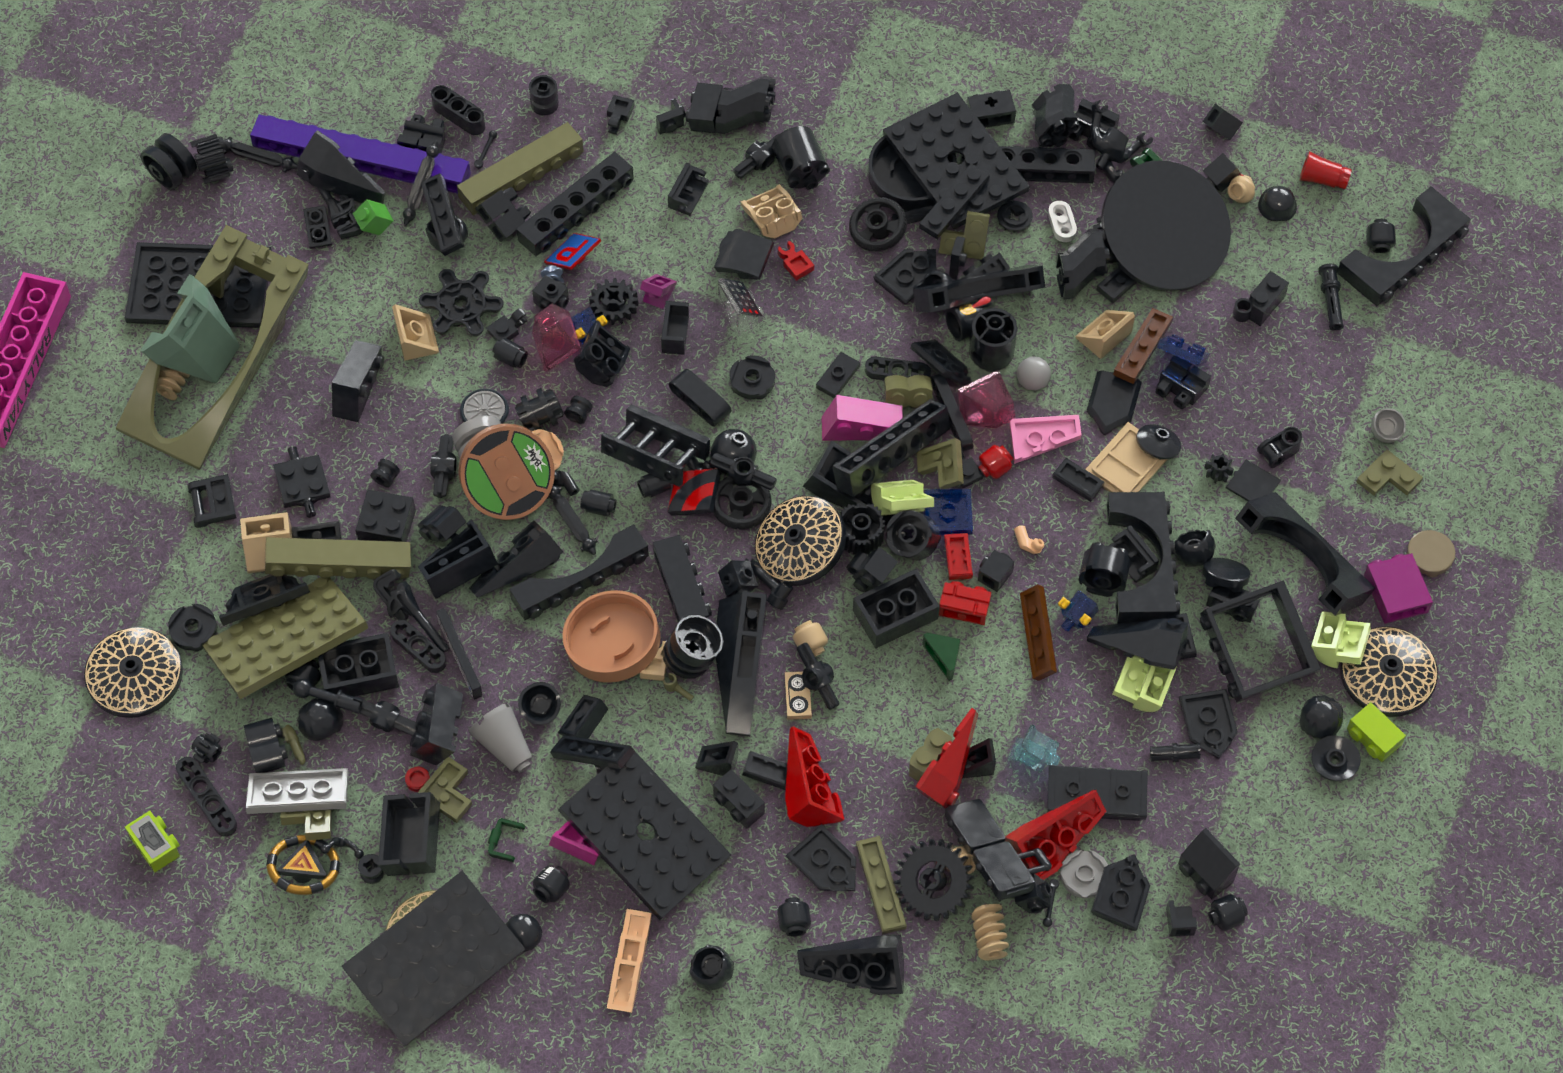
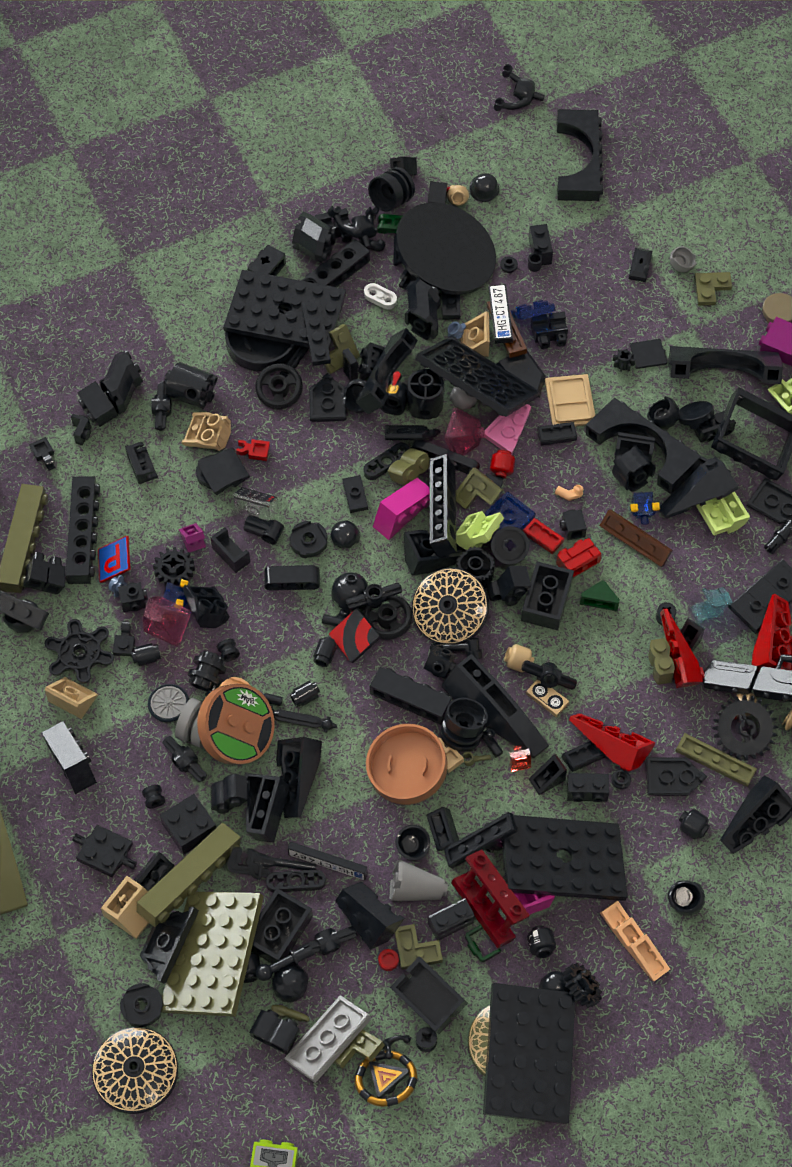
camera: 45 degrees left, 0 degrees up
(206, 748) = (241, 1069): black gear -> none
(207, 796) = (272, 1103): black beam -> none
(219, 498) = (64, 910): black plate -> none
(500, 794) = (451, 919): none -> black brick
(537, 595) = (333, 781): black arch -> none
(538, 949) = (582, 985): none -> black gear
(544, 805) = (482, 907): none -> dark red fence
(662, 430) = (298, 615): black fence -> none
(705, 683) = (488, 738): none -> black arm
(710, 722) = (520, 759): none -> clear red tile
(726, 340) = (267, 530): none -> black piece
(778, 814) = (623, 774): none -> black plate
(788, 401) = (345, 534): none -> black hair
(984, 727) = (671, 608): none -> black wheel
(1018, 209) = (357, 312): black gear -> none
(1054, 362) = (477, 376): none -> black plate
(1095, 309) = (456, 330): none -> sand blue plate
(1148, 327) = (500, 314): none -> tile
(1158, 441) = (575, 374): black dish -> none
(1178, 131) = (391, 189): none -> black wheel
(1216, 297) = (508, 268): none -> black plate
(1277, 449) = (641, 321): black piece -> none
(1324, 172) = (490, 149): red plant -> none
(1330, 287) = (566, 210): black pin -> none
(1335, 403) = (640, 271): none -> black piece
(1381, 236) = (560, 159): black head -> none
(1422, 143) = (523, 90): none -> black piece

